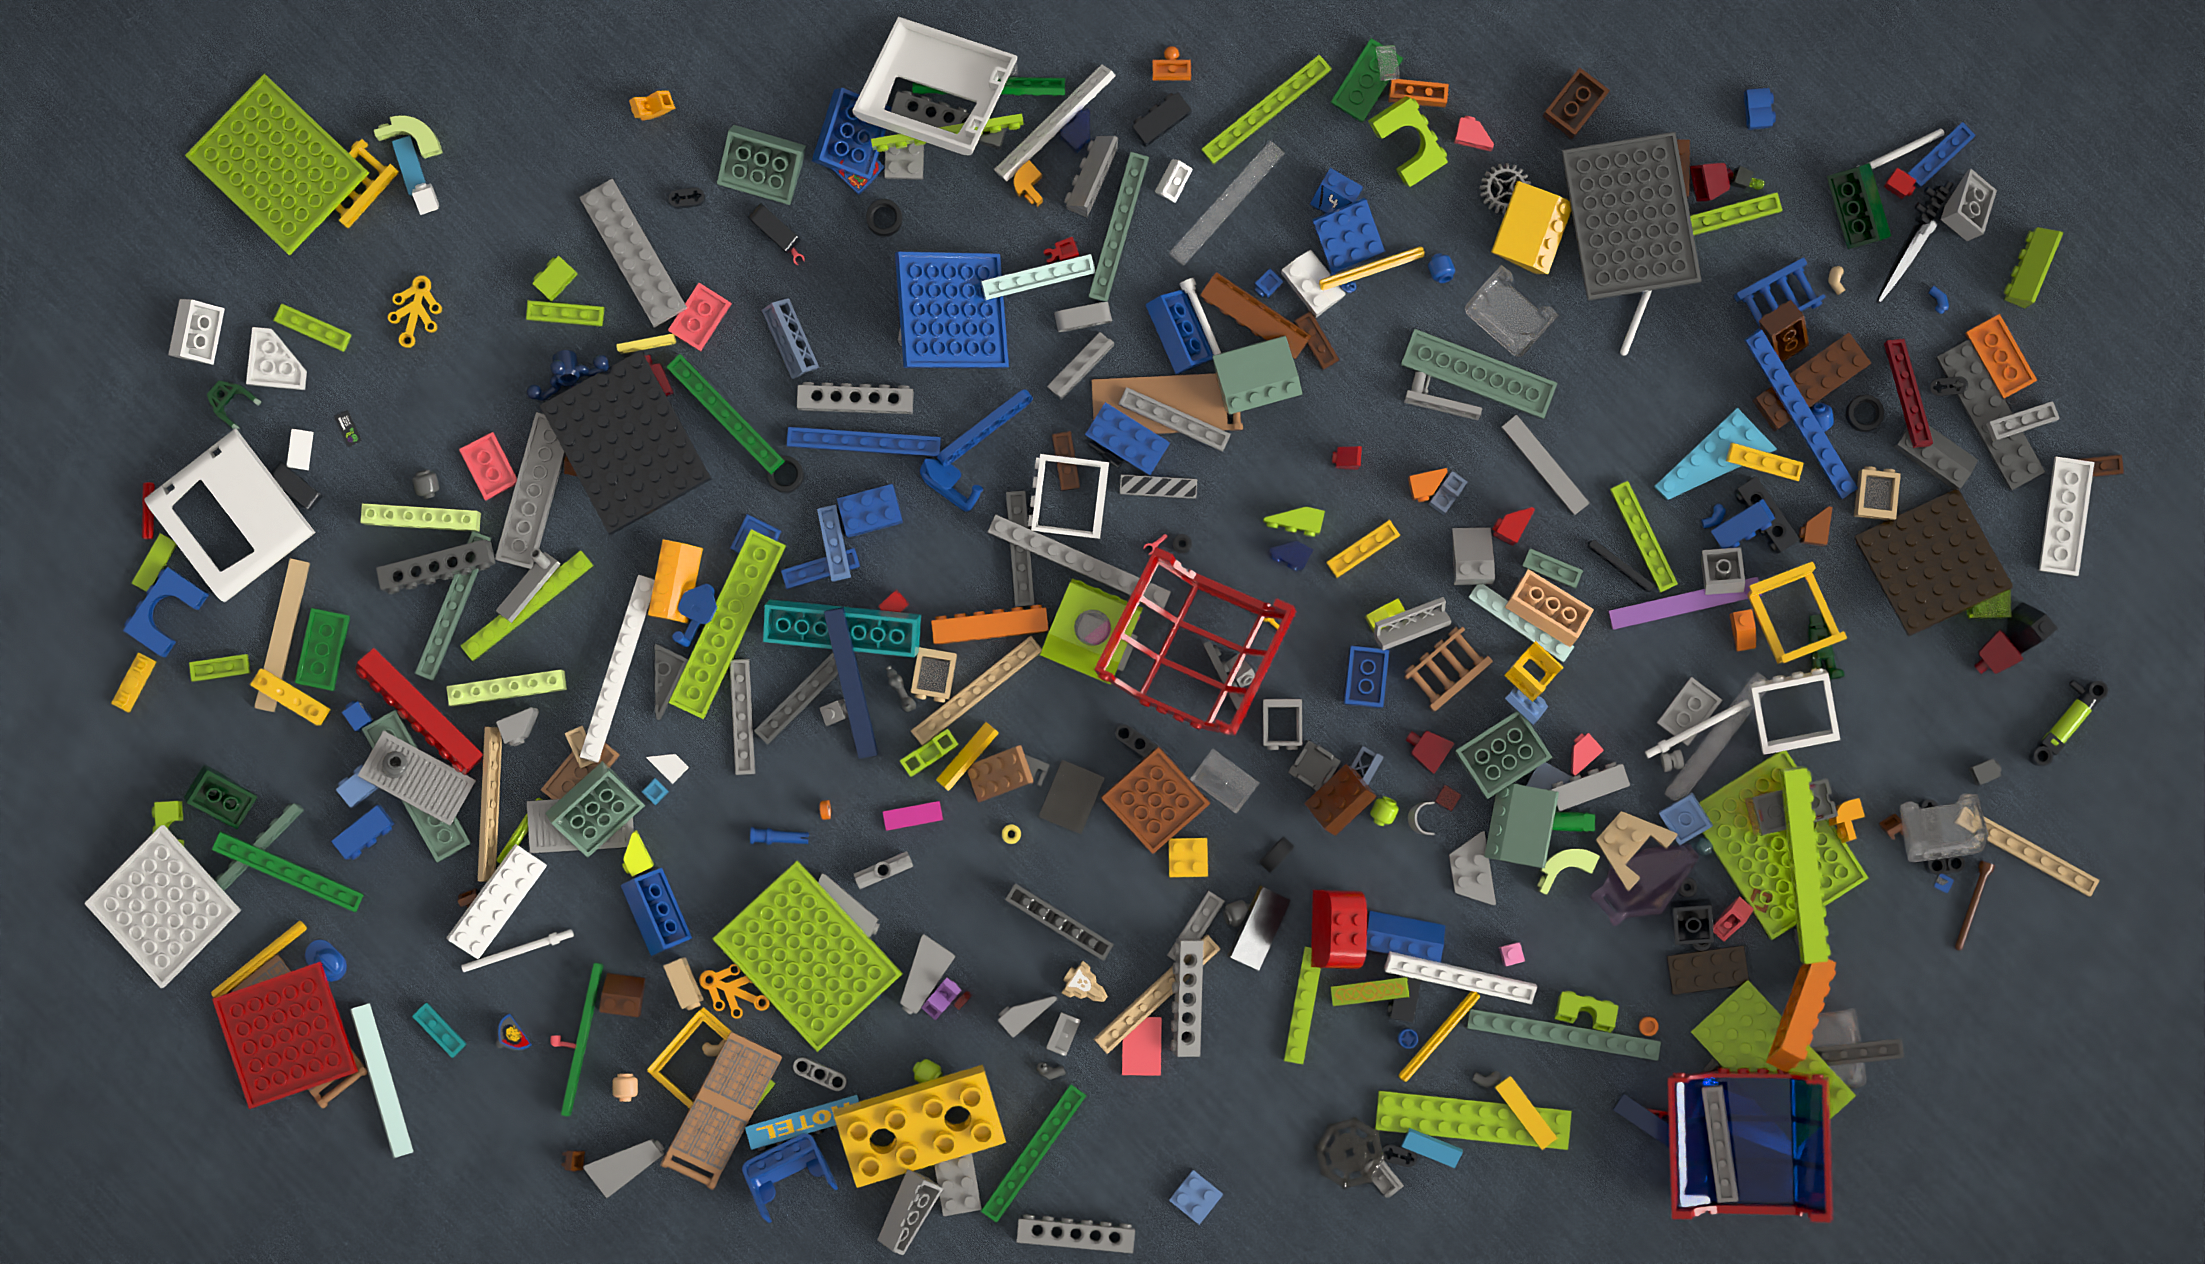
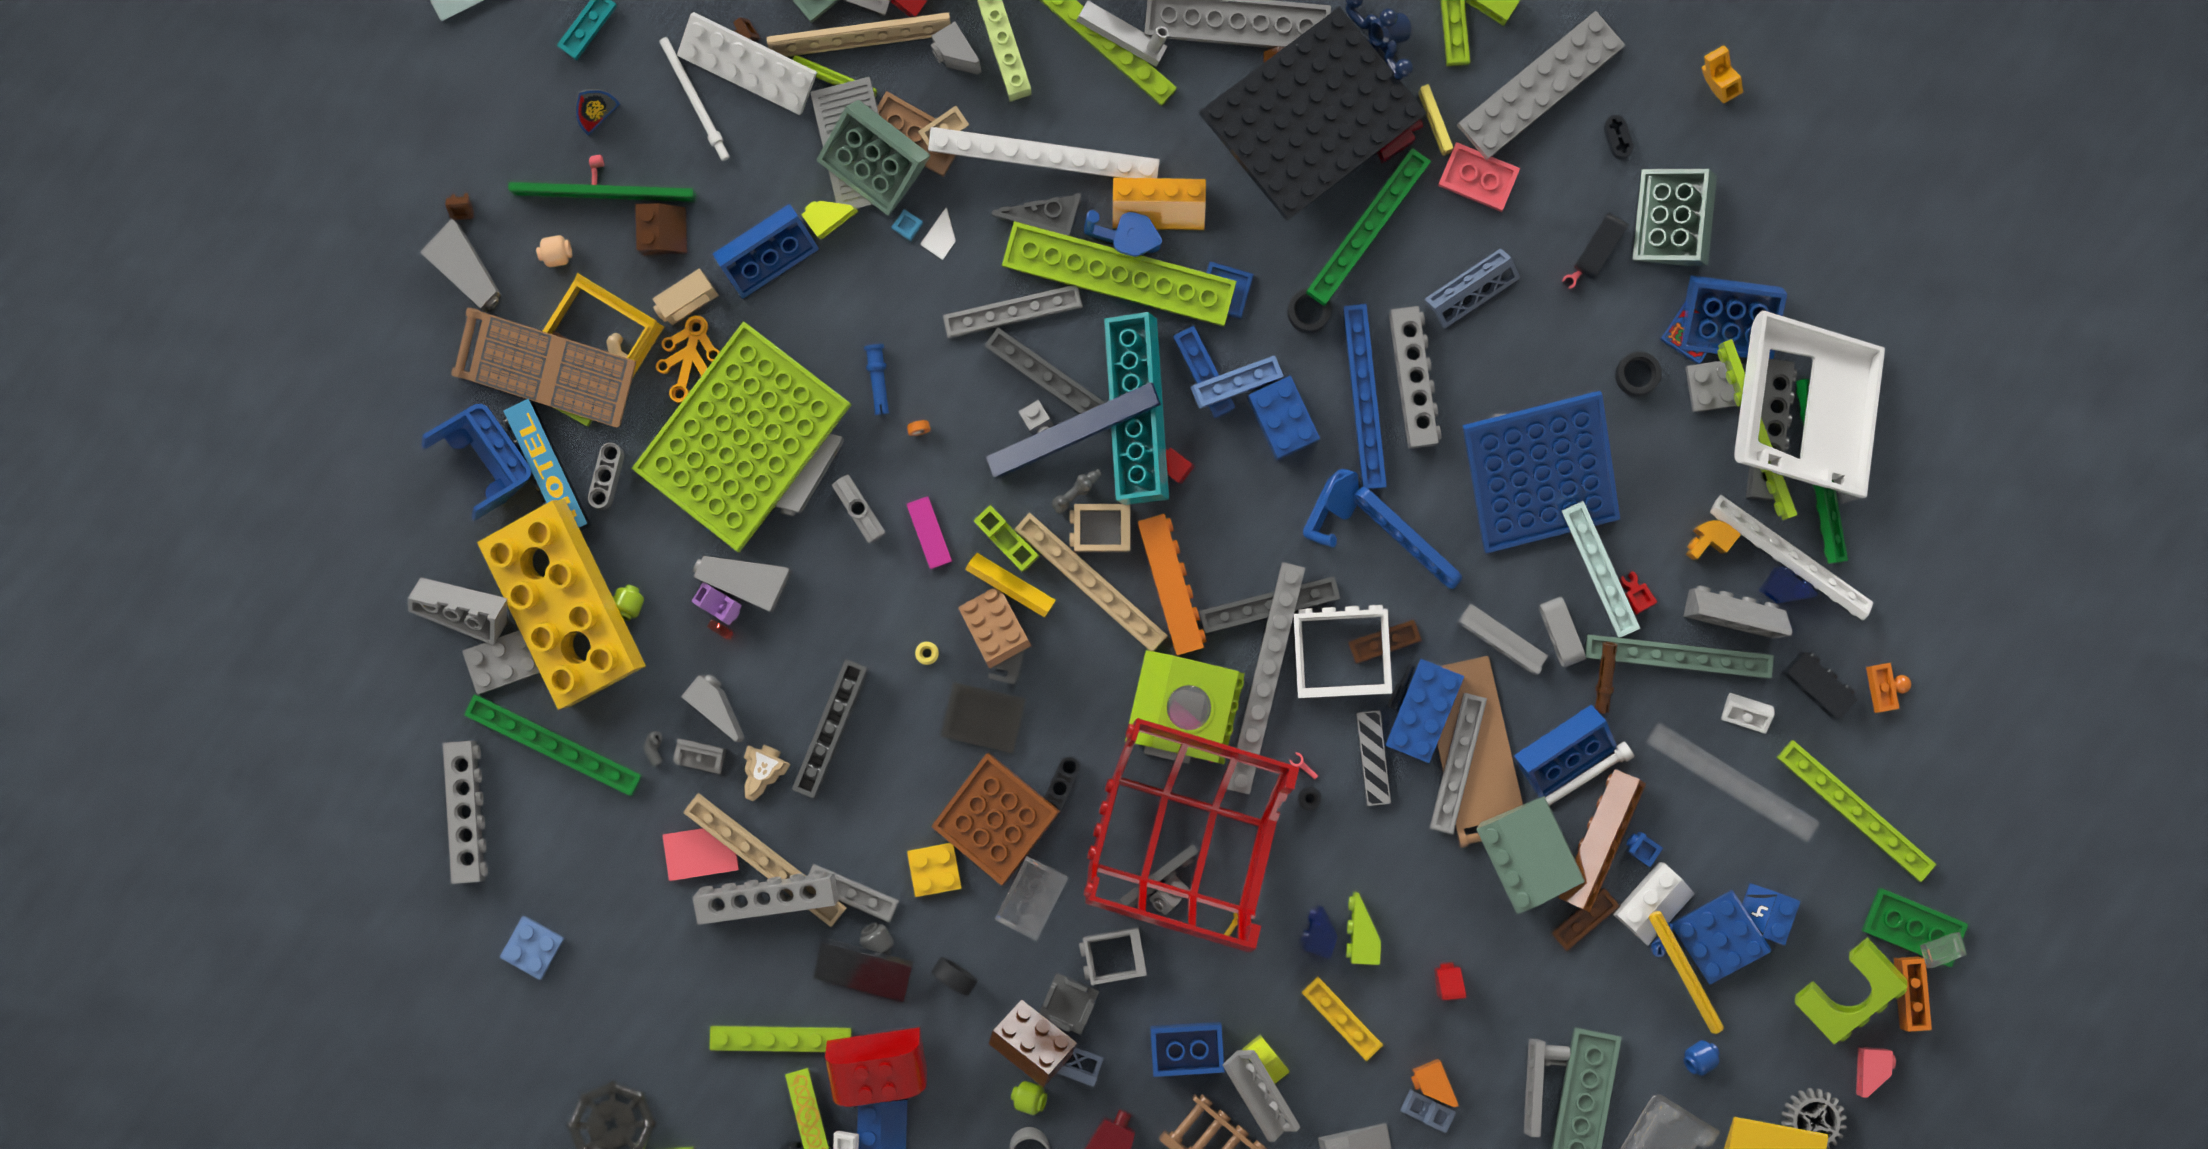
camera: 85 degrees right, 0 degrees up
(1133, 291) = (1605, 682): none -> reddish brown pin

